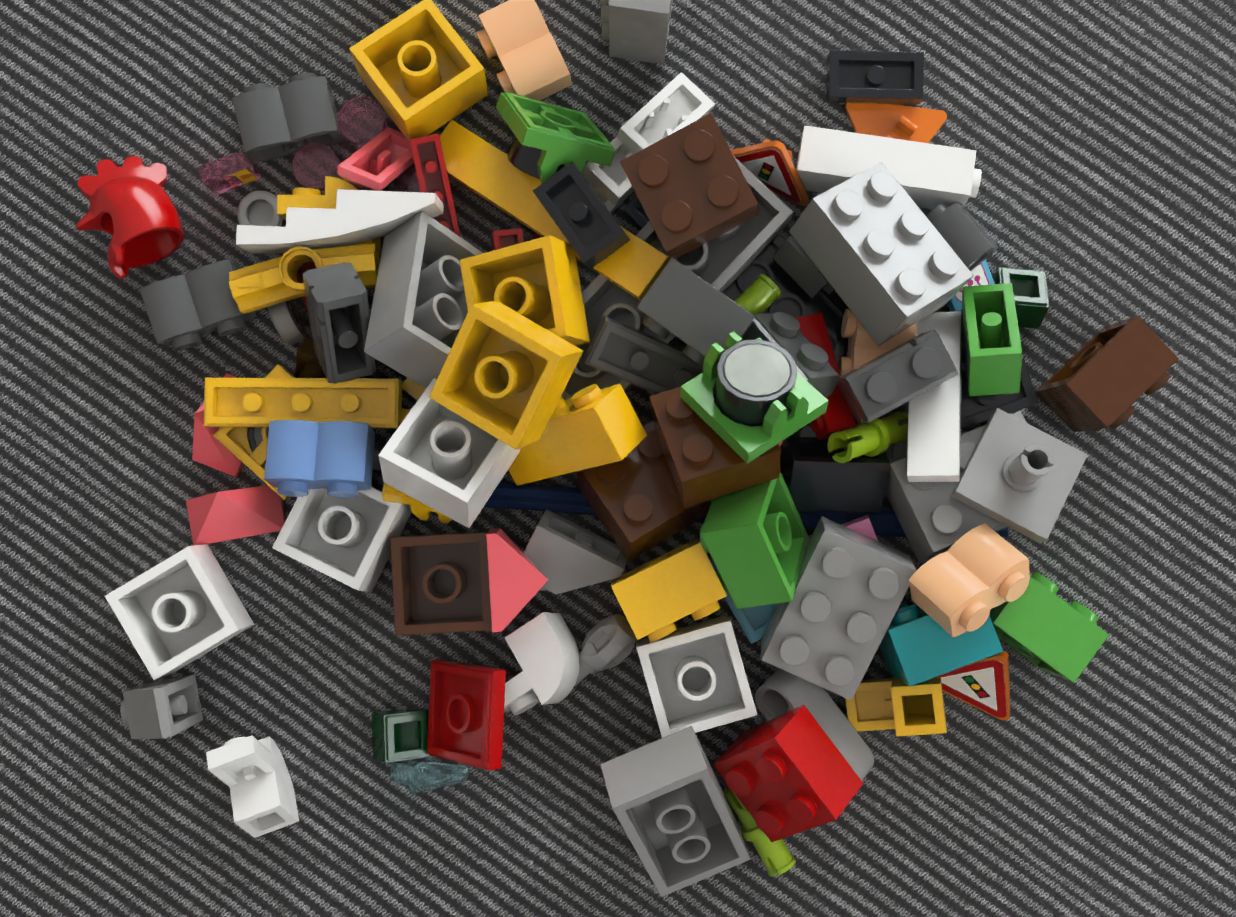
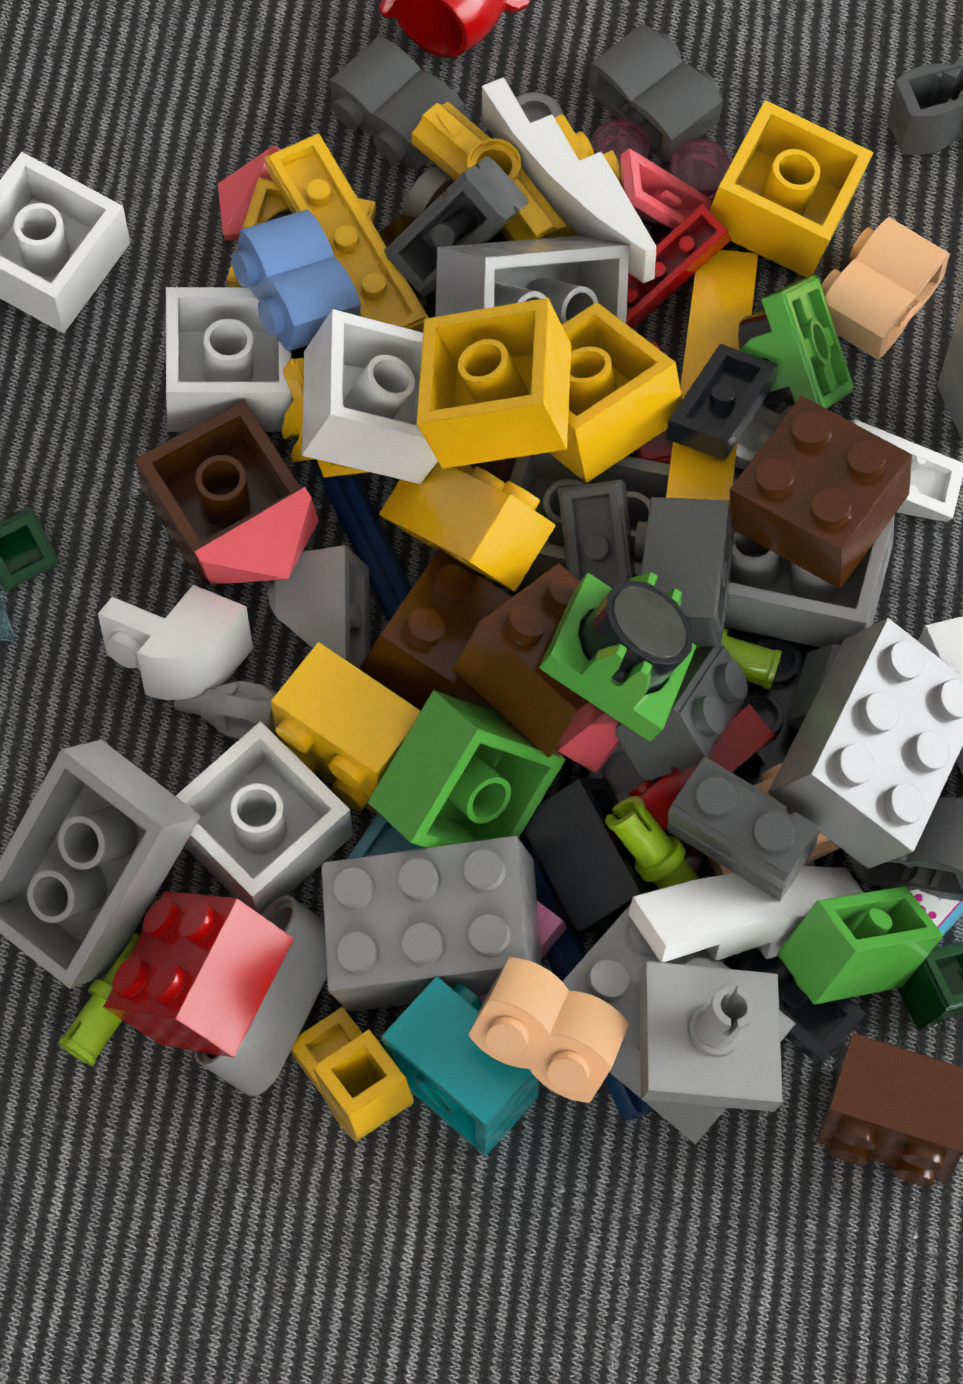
camera: 60 degrees right, 20 degrees down
(228, 173) = (559, 64): clear pink tile -> none
(235, 514) = (179, 247): coral slope -> none
(466, 713) = (81, 589): red tile -> none
(774, 168) = (911, 593): piece -> none
(982, 685) = (433, 1164): piece -> none
(1049, 630) = (543, 1181): bright green brick -> none

